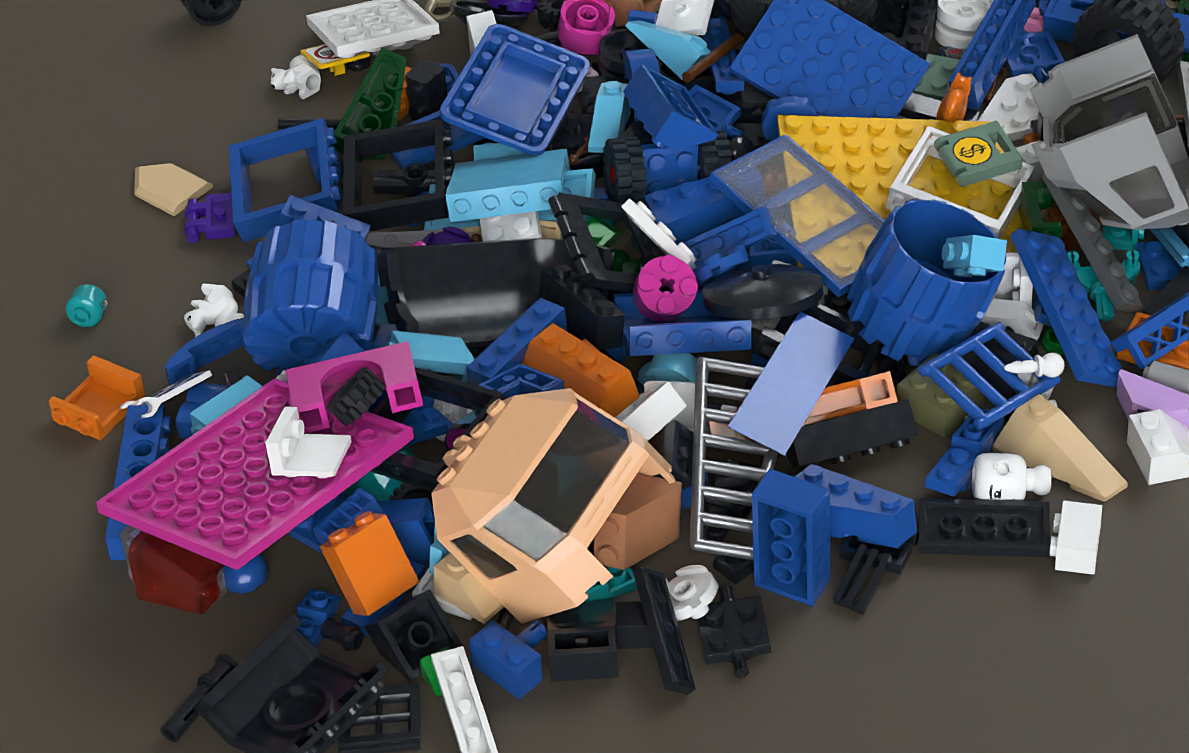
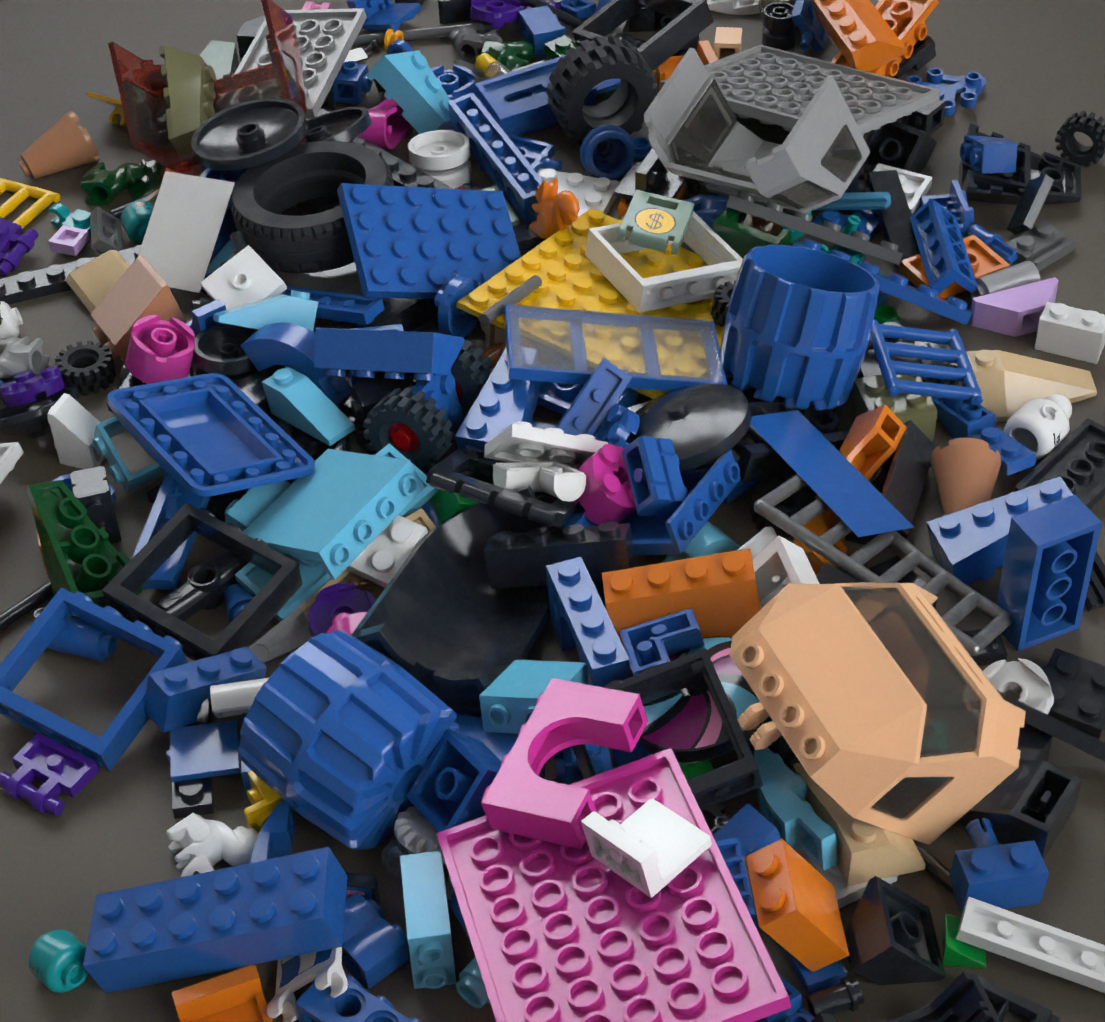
camera: 55 degrees left, 0 degrees up
(149, 338) = (217, 920): none -> blue brick
(355, 396) = (618, 762): black tyre -> none
(574, 158) = (308, 440): reddish brown hinge -> none
(629, 250) = (543, 476): none -> white brick
(679, 297) = (654, 476): none -> blue brick
(712, 57) = (323, 303): reddish brown bar -> none
(806, 136) = (511, 299): none -> dark grey bar
(891, 463) = (965, 473): none -> nougat cone
(974, 255) = (837, 266): medium azure brick -> none
(1049, 365) = (949, 326): white bar -> none

